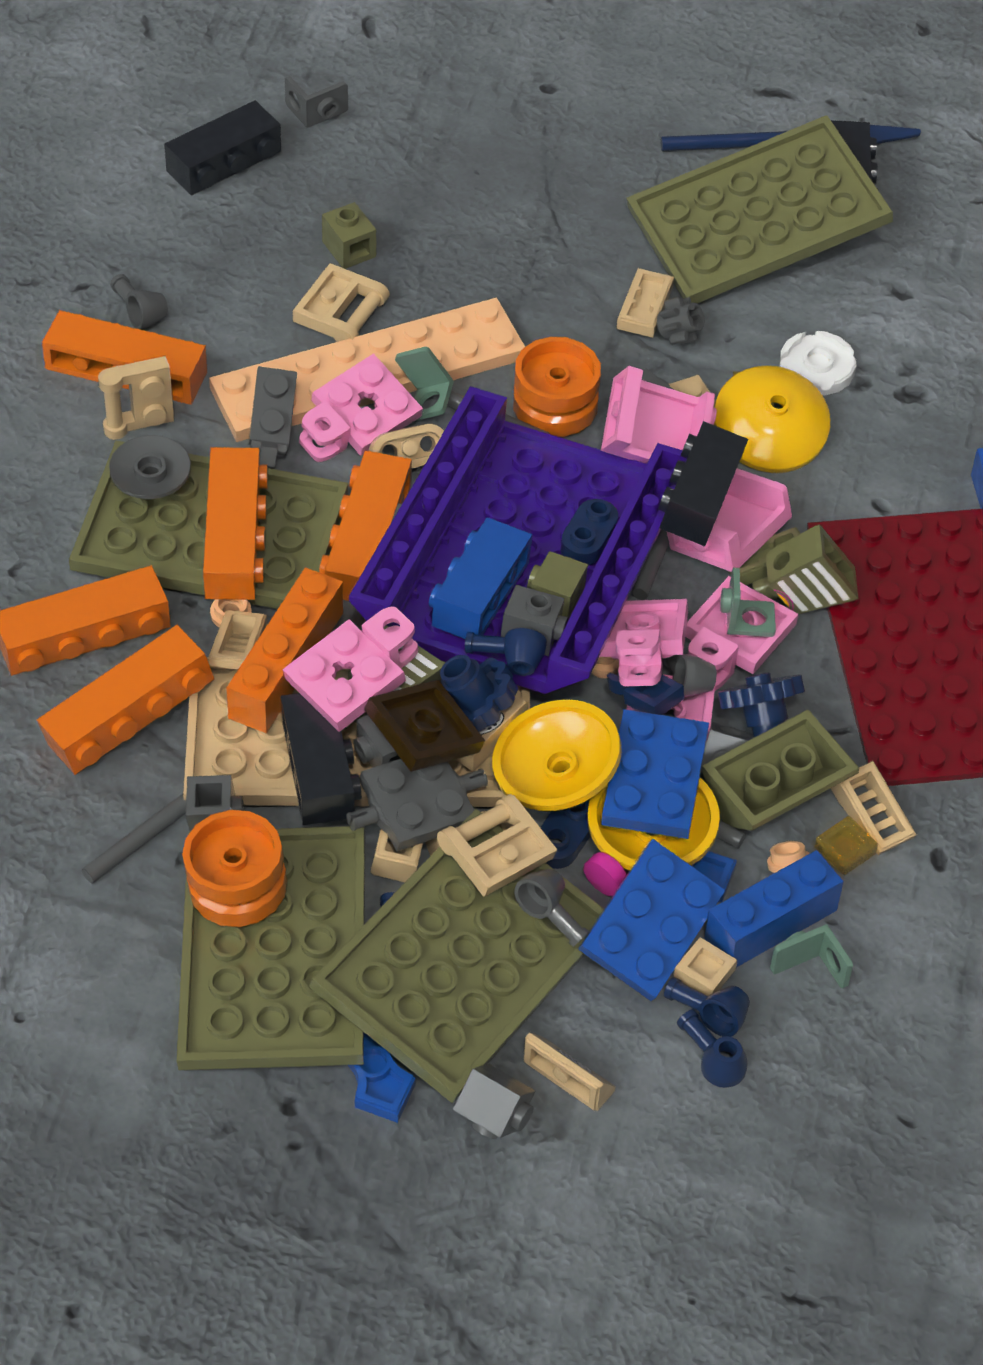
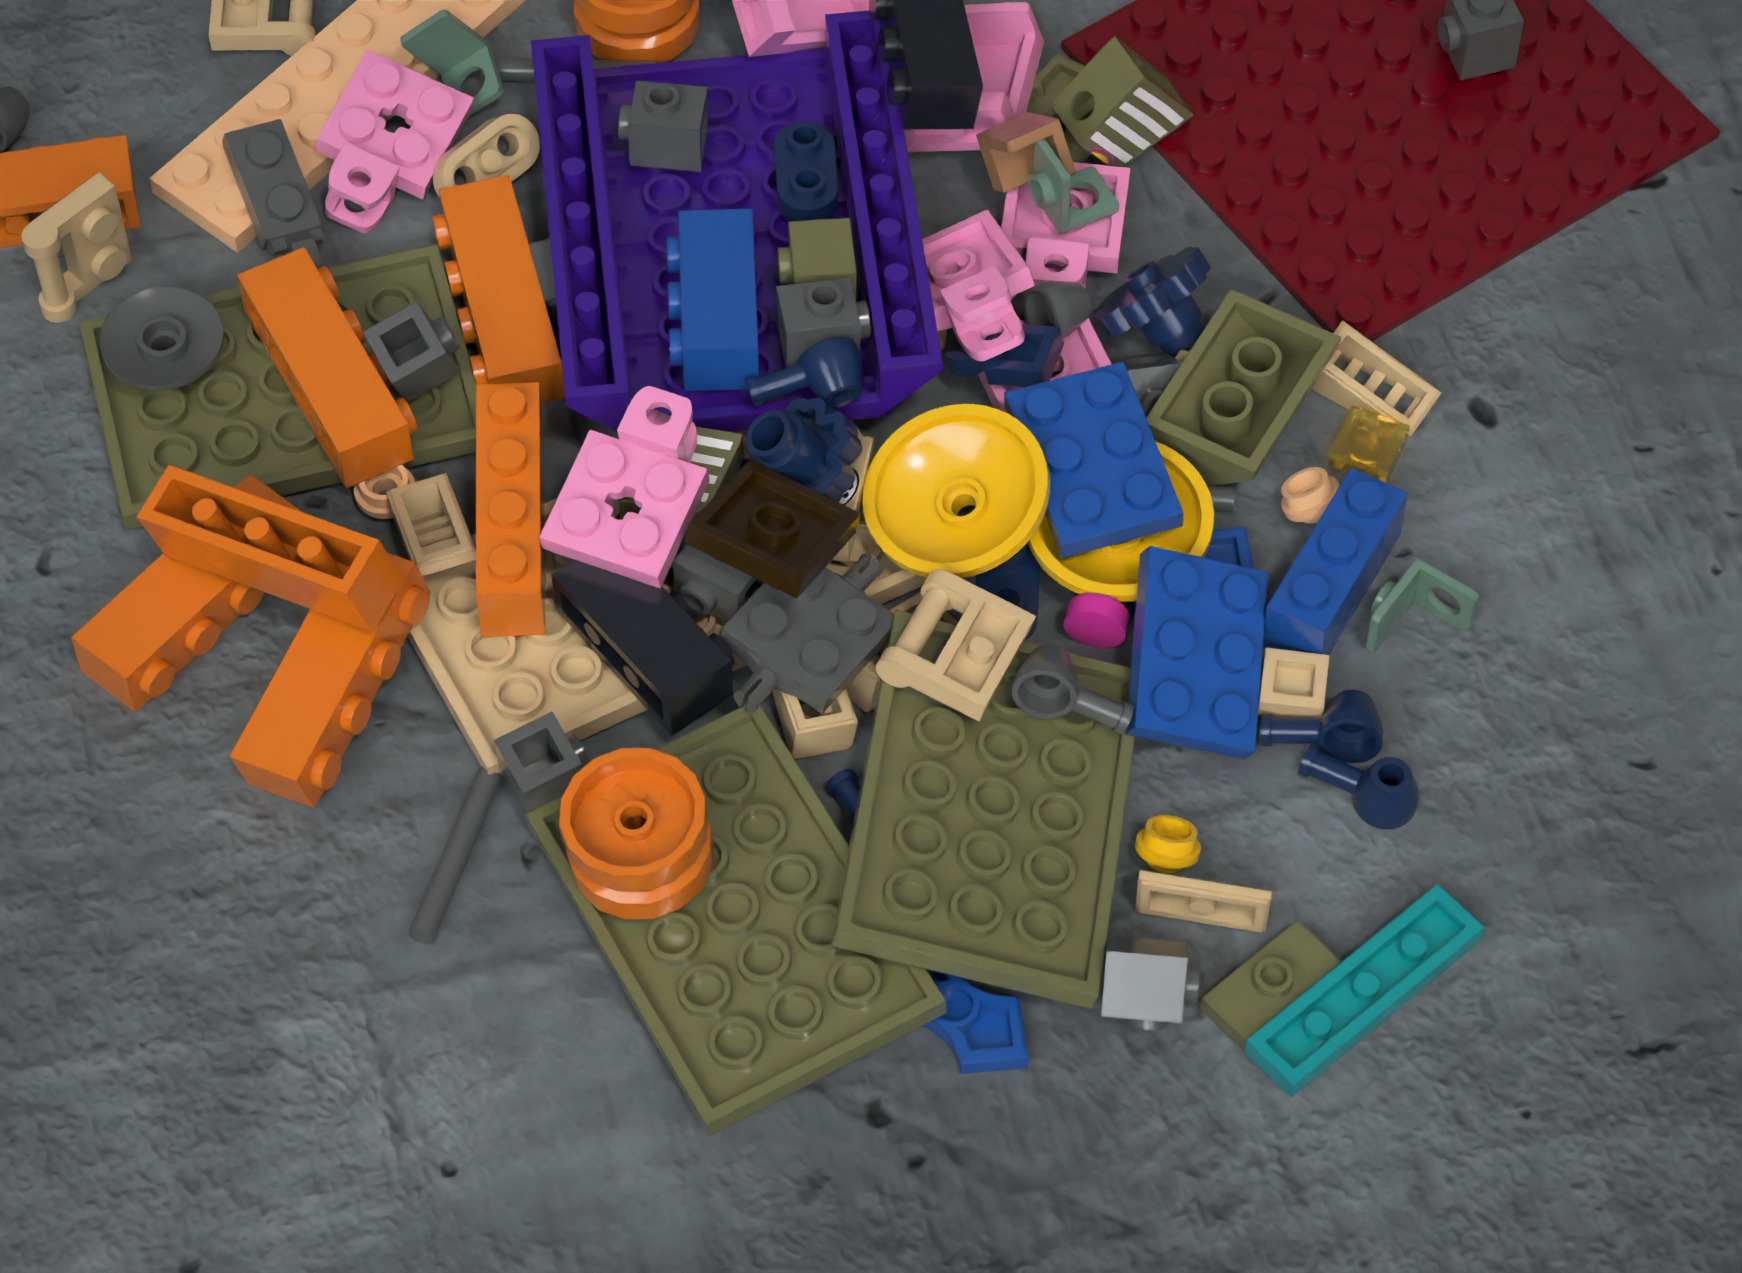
camera: 25 degrees left, 5 degrees up
(124, 607) = (271, 547): none -> orange brick
(285, 534) = (414, 350): none -> dark grey brick
(520, 468) = (666, 125): none -> dark grey brick
(565, 1027) = (1168, 843): none -> yellow plate
(577, 1144) = (1268, 983): none -> olive plate
(632, 1173) = (1364, 990): none -> teal plate
(719, 567) = (1010, 148): none -> medium nougat panel

